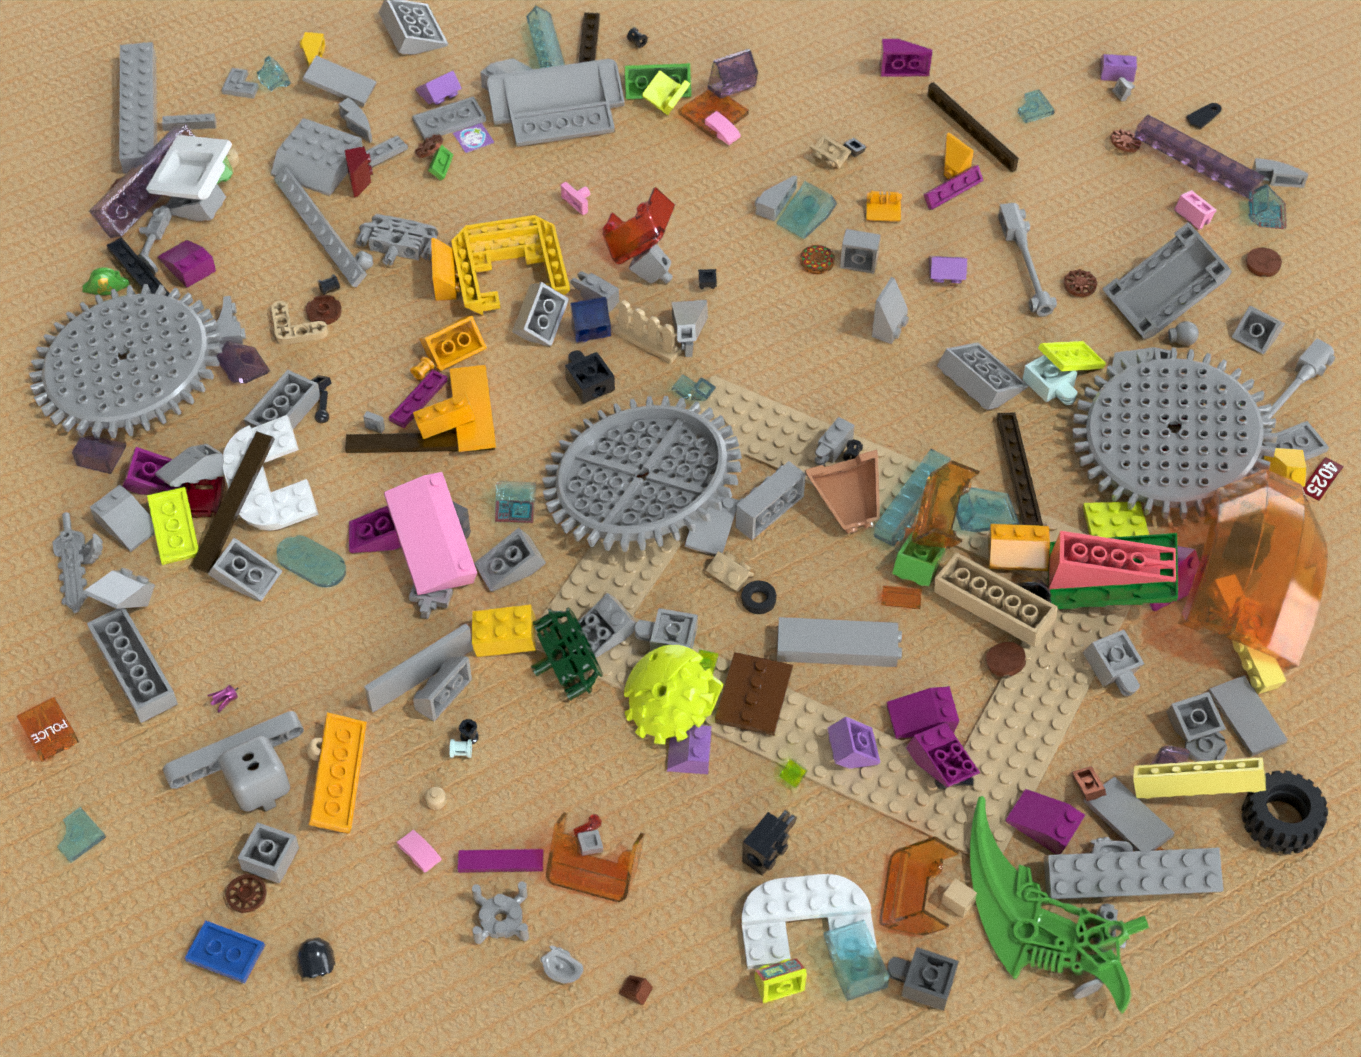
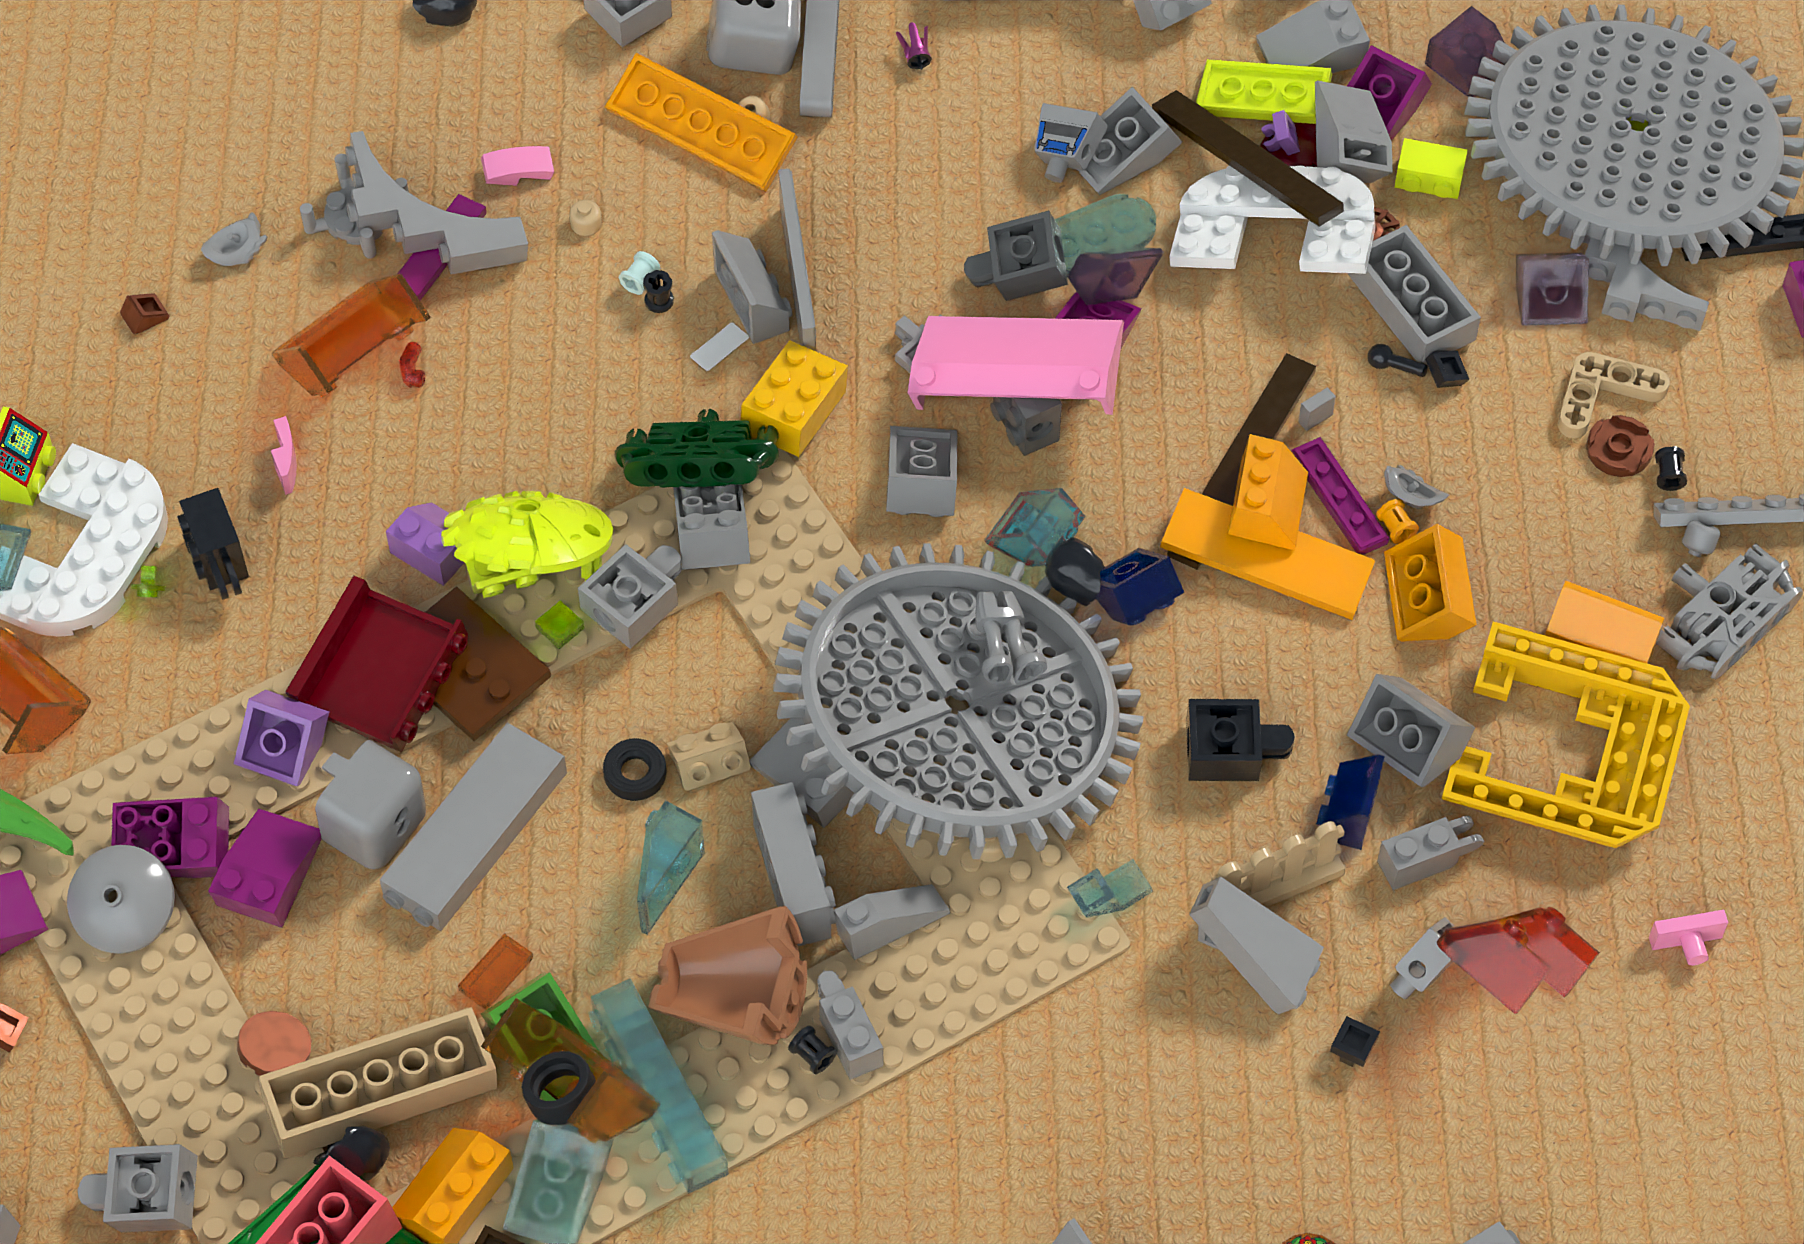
camera: 120 degrees right, 5 degrees up
(189, 432) = (1430, 168): none -> neon yellow brick
(202, 499) = (1284, 132): none -> medium lavender tile
(258, 590) = (1067, 139): none -> light grey torso
(340, 526) = (1113, 273): none -> clear purple slope
(354, 573) = (1022, 257): none -> dark grey brick
(401, 366) = (1411, 488): none -> light grey hat
(483, 693) = (719, 346): none -> white sticker
(498, 886) = (462, 240): none -> light grey arch
(523, 449) = (1138, 586): none -> clear blue slope
(536, 465) = (1074, 570): none -> black hair
(590, 842) = (383, 353): light grey plate -> none
(612, 455) = (1006, 618): none -> light grey piece
(689, 847) = (285, 456): none -> bright pink slope
(767, 454) = (887, 916): none -> light grey slope
(786, 720) = (378, 665): none -> dark red panel
(793, 773) = (299, 645): clear neon green plate -> none
(807, 548) = (669, 856): none -> clear light blue slope
(808, 868) = (148, 579): none -> clear neon green plate
(866, 676) = (370, 804): none -> light grey piece
(953, 496) = (544, 1072): none -> black tyre
(990, 758) = (142, 902): none -> light grey dish

